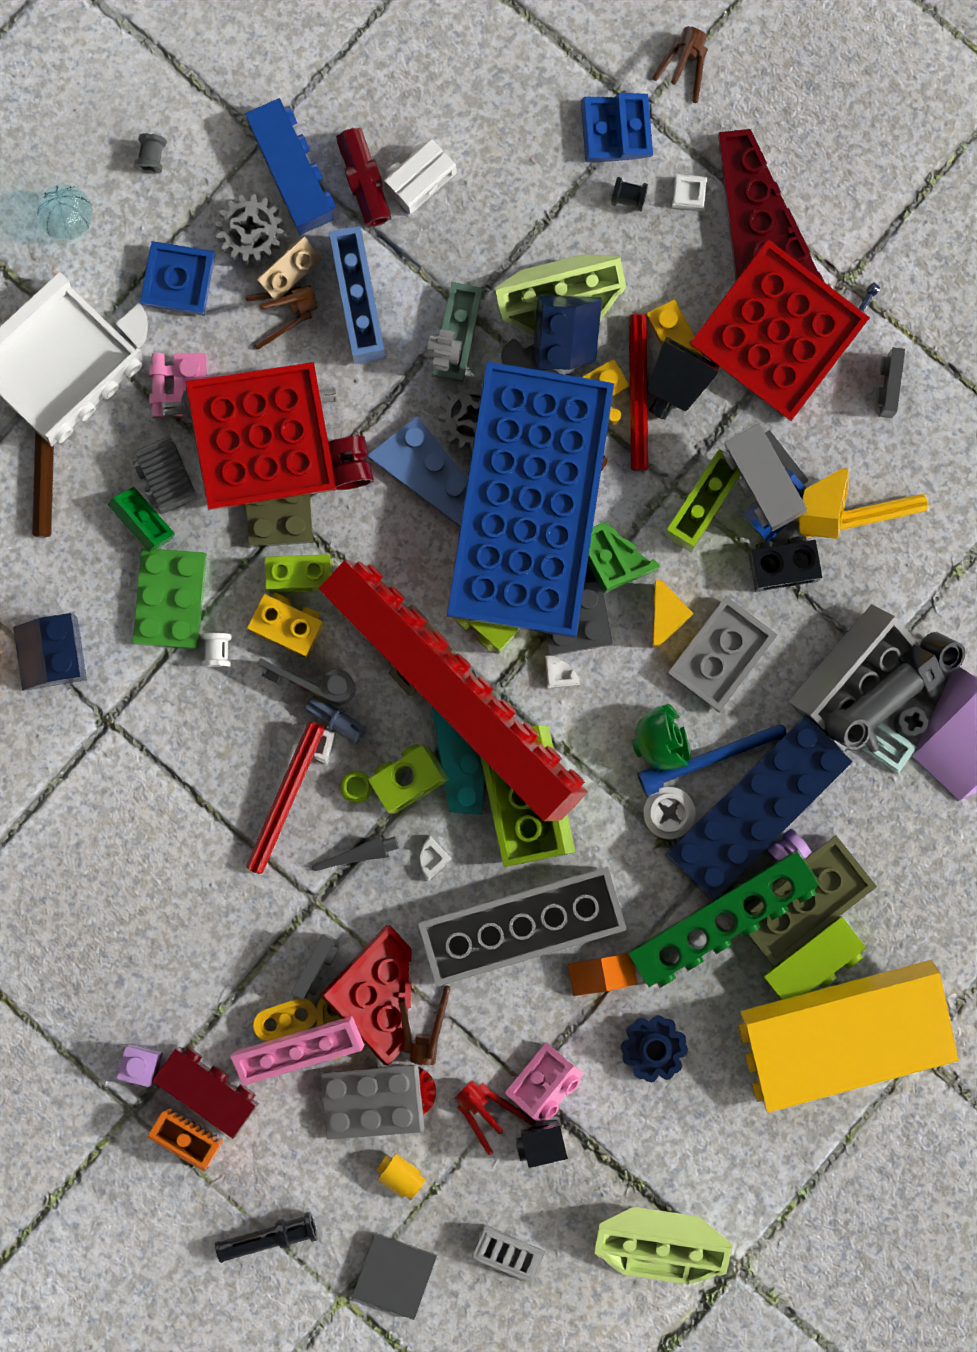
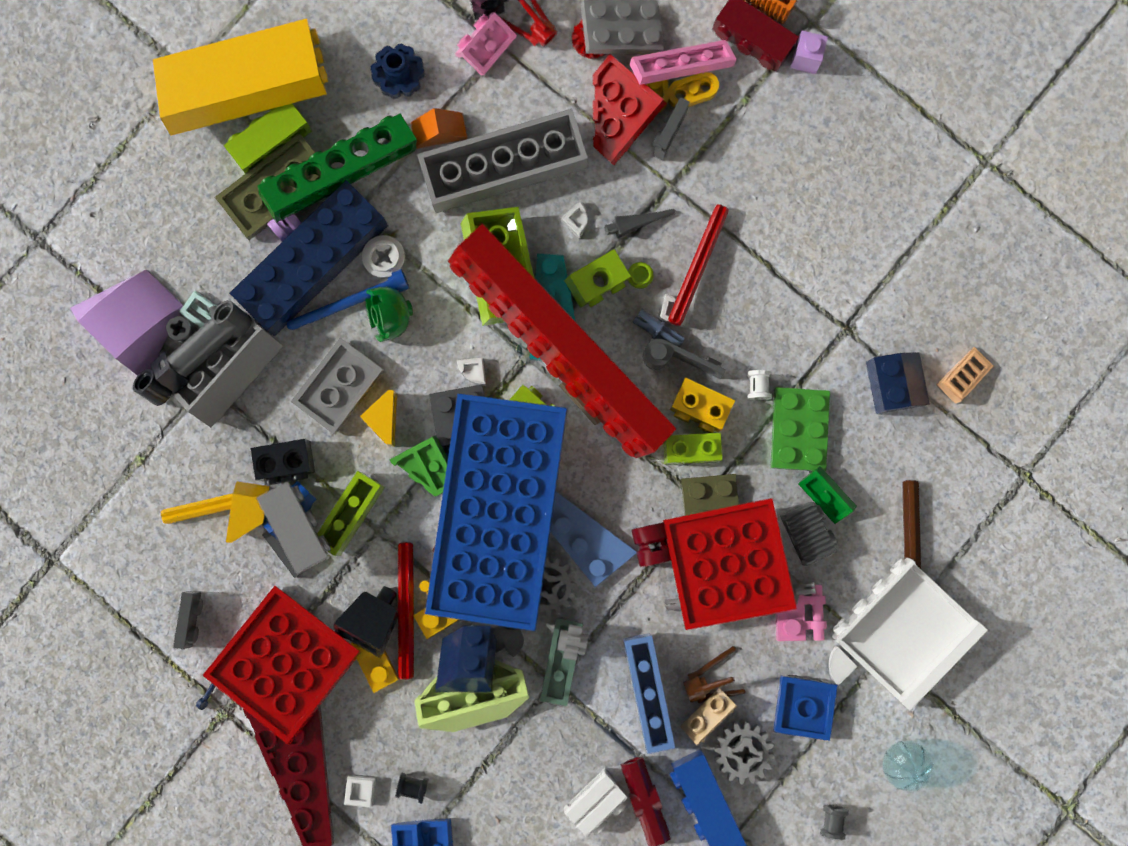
camera: 175 degrees right, 0 degrees up
(424, 1047) = (580, 70): reddish brown plant -> none

